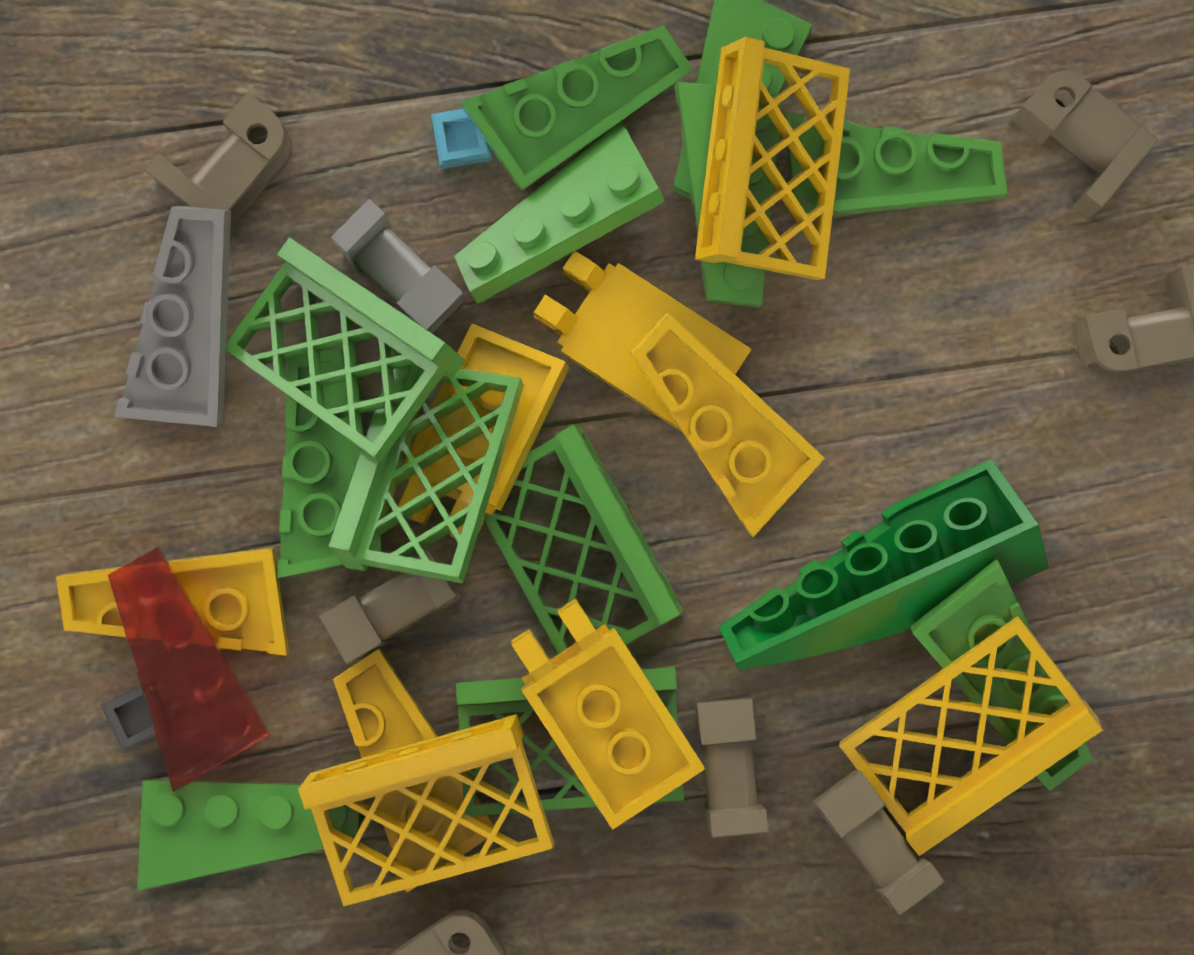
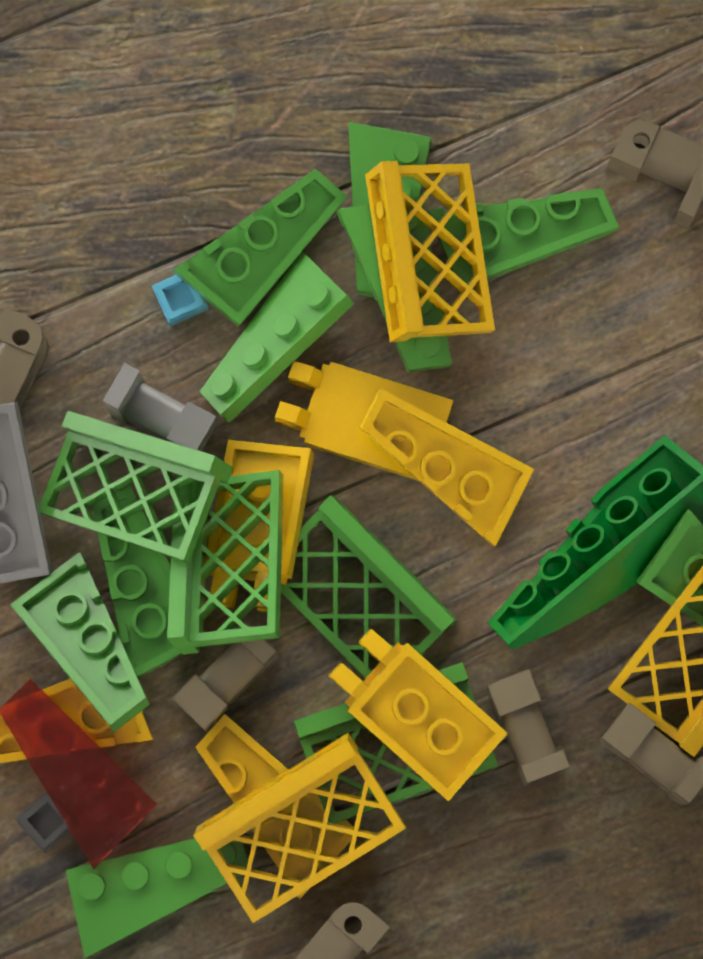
camera: 10 degrees left, 5 degrees down
(233, 514) = (80, 636): none -> bright green wing

